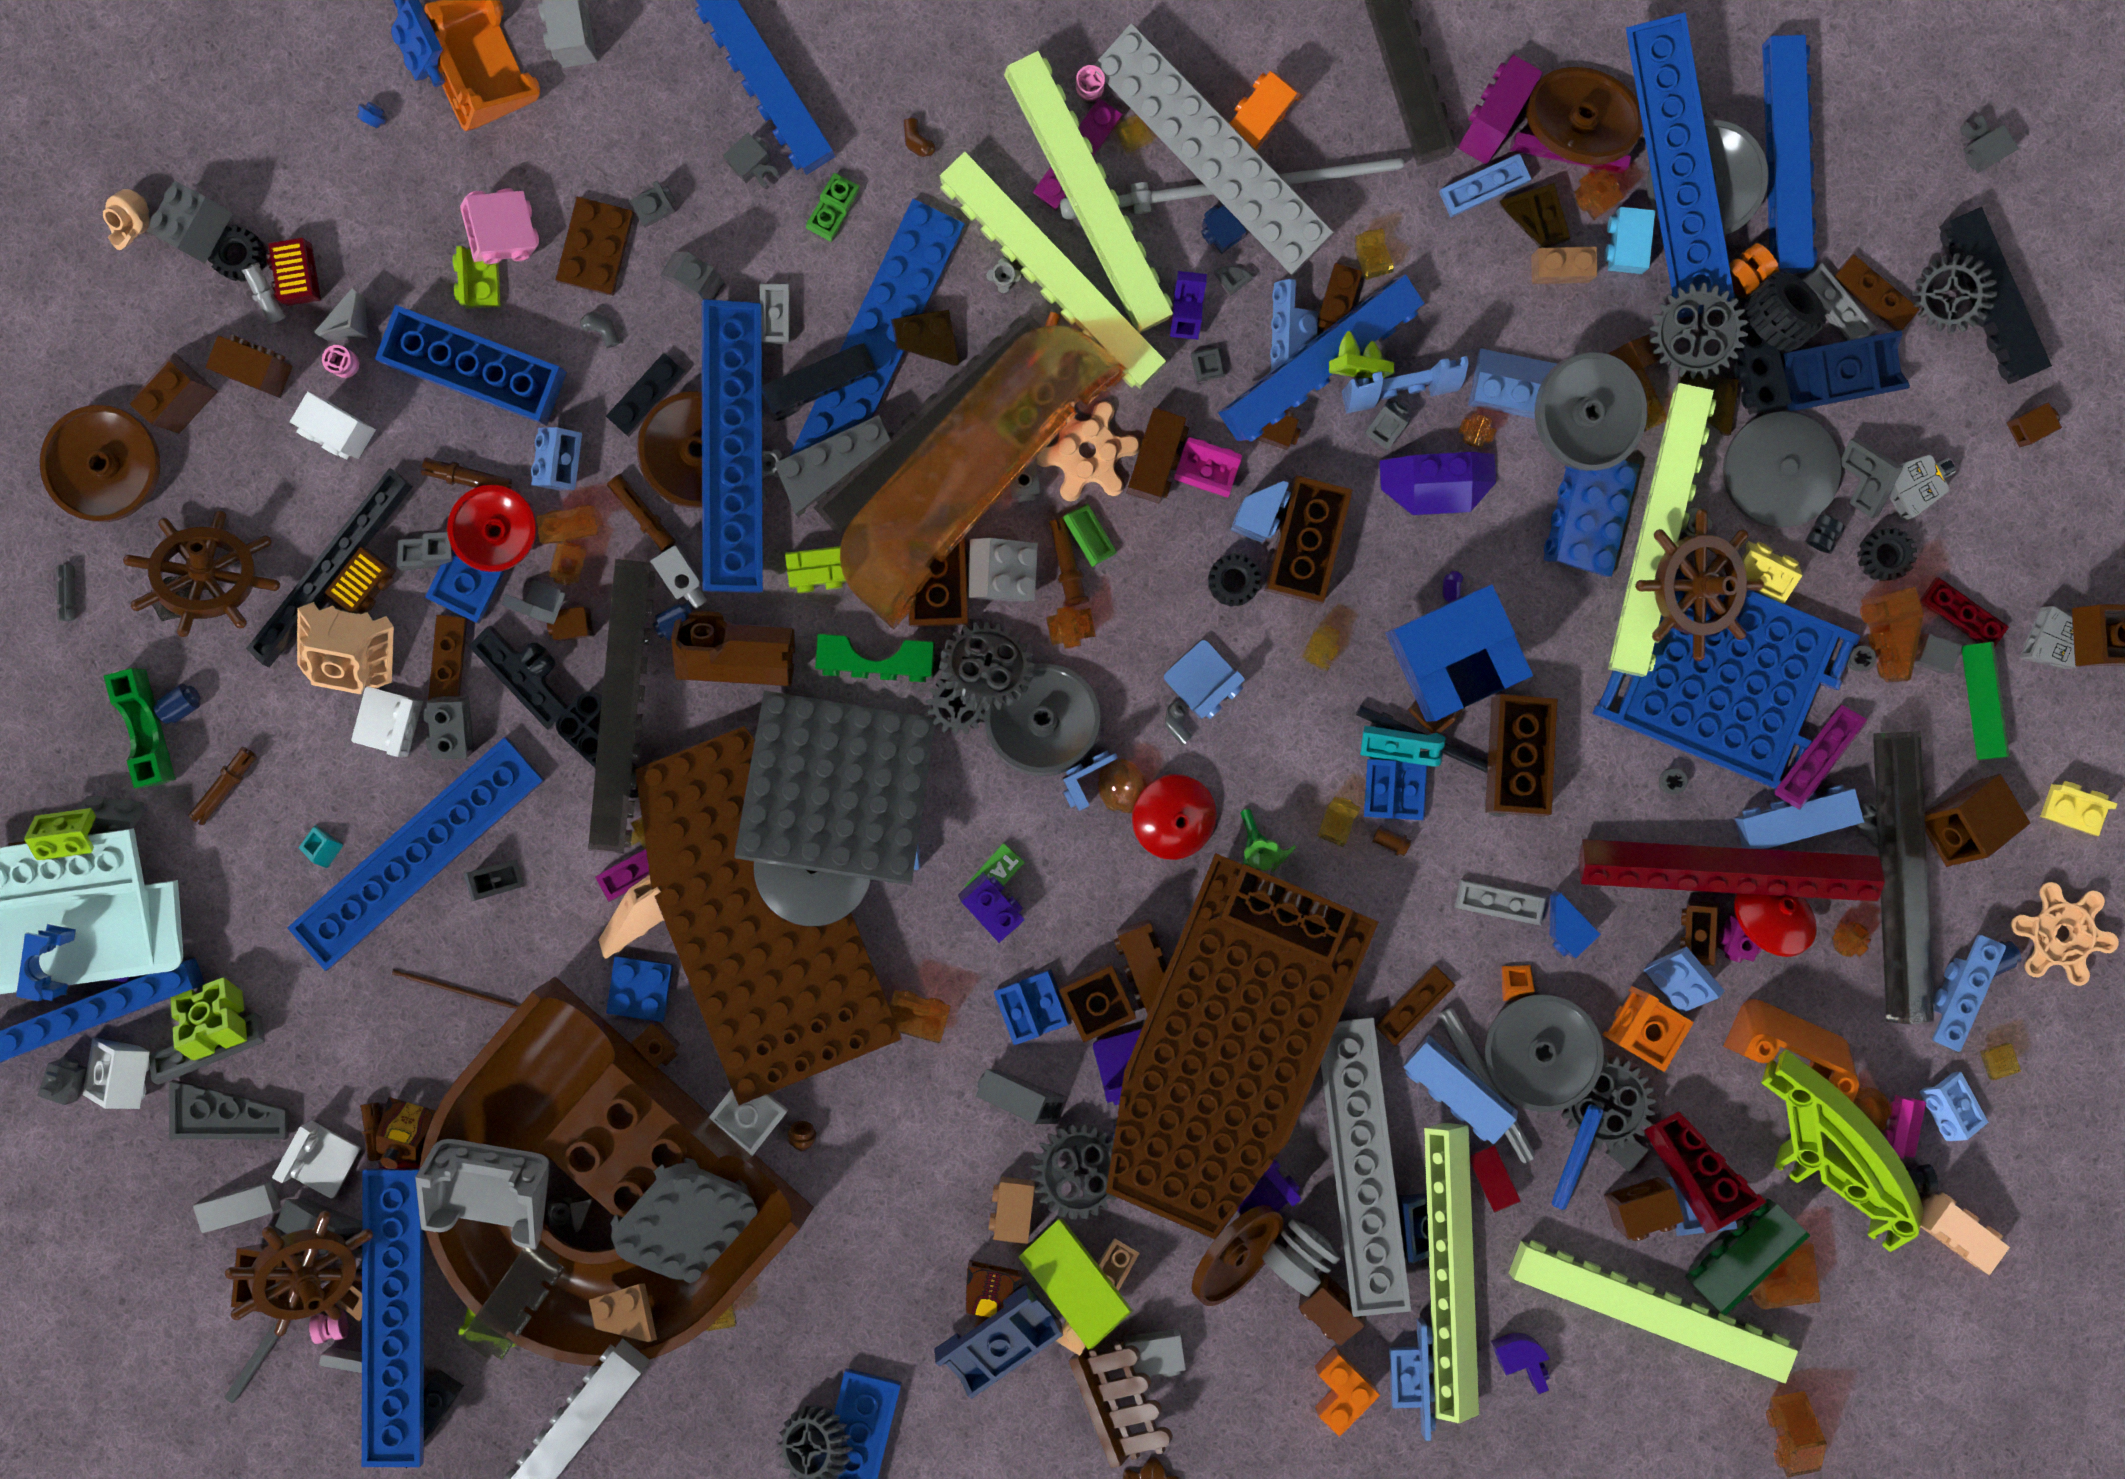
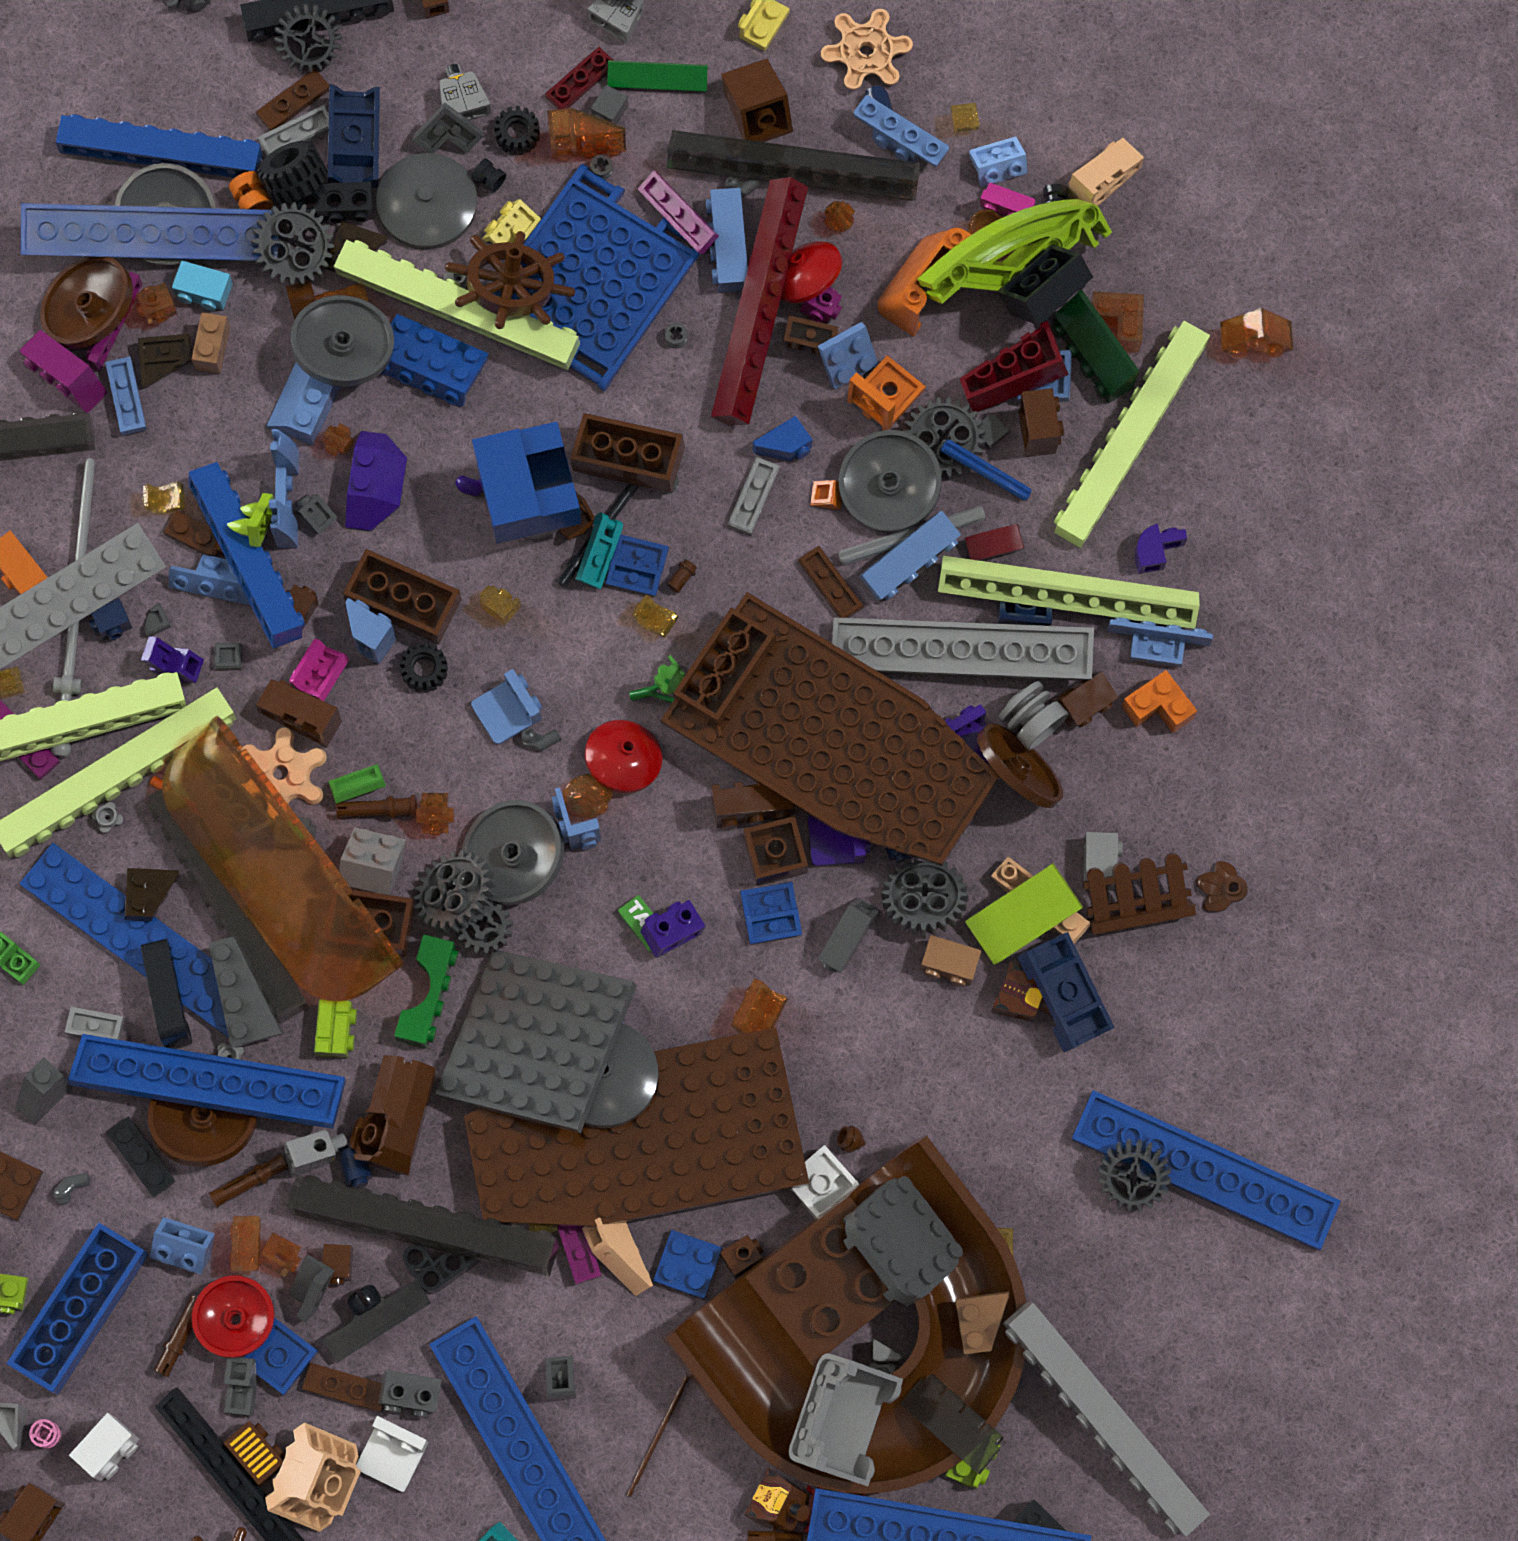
camera: 85 degrees left, 15 degrees down
(1809, 1193) = (1045, 284): none -> black brick

